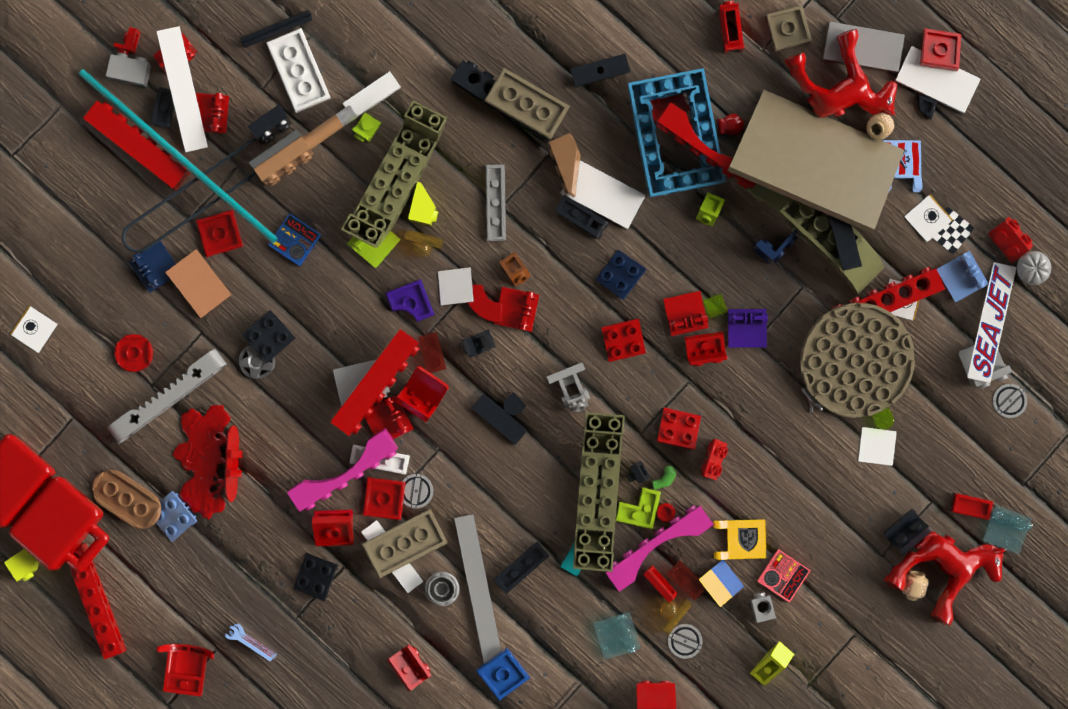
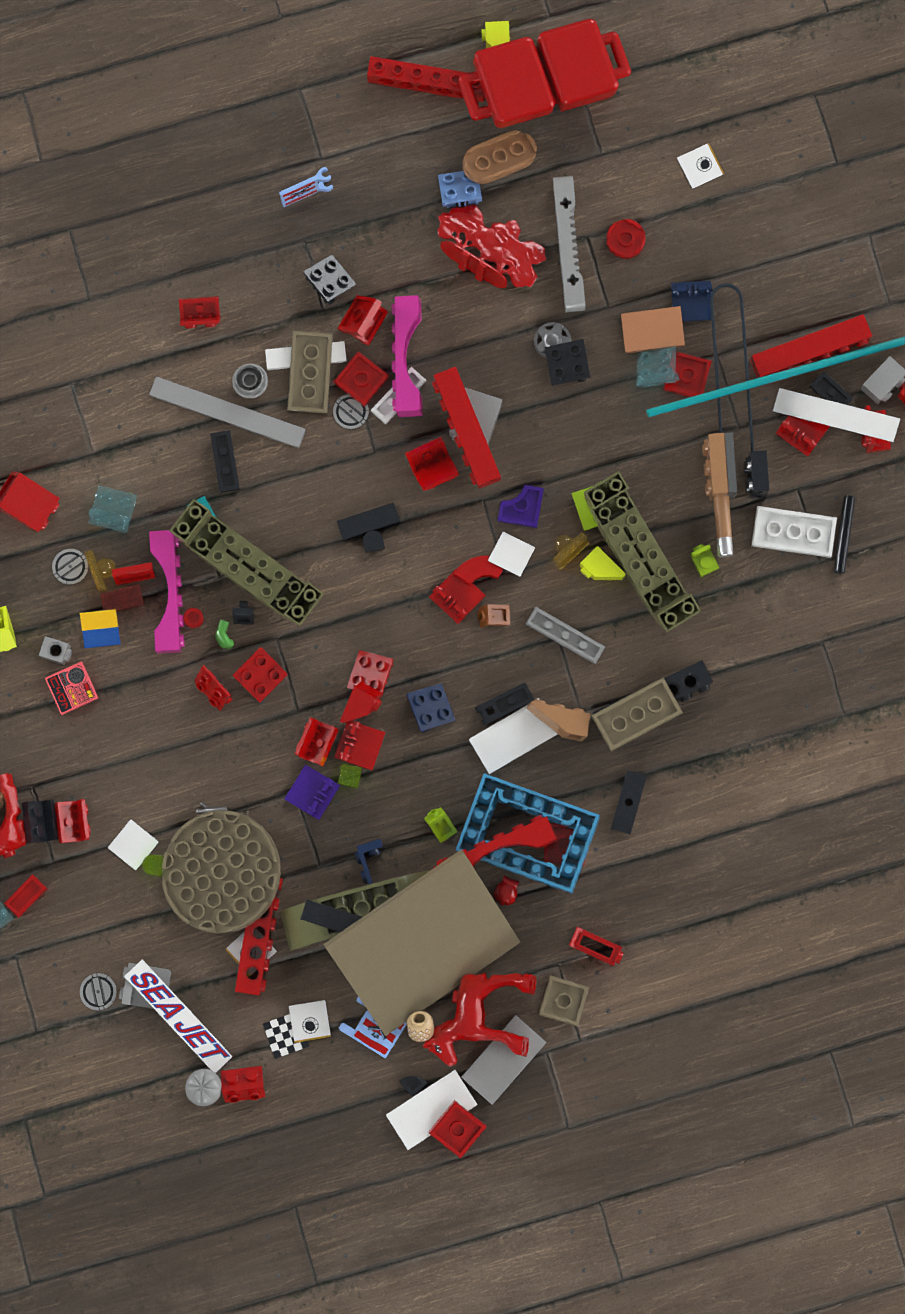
camera: 125 degrees right, 5 degrees down
(185, 668) = (320, 121): red piece -> none
(228, 260) = (656, 367): none -> clear light blue hinge
(295, 240) = (640, 438): tile -> none
(373, 94) = (731, 584): white tile -> none
(389, 416) = (429, 426): red hinge -> none
(432, 352) = (464, 497): clear red plate -> none
(478, 343) = (446, 542): black bracket -> none
(503, 673) = (142, 389): blue tile -> none
(566, 377) = (340, 601): light grey tile -> none
(644, 513) = (205, 597): lime tile -> none
(653, 329) = (362, 702): none -> red slope
(744, 539) = (126, 673): yellow flag -> none
(890, 505) = (72, 821): none -> red bracket
(962, 276) = (237, 1018): medium blue hinge -> none

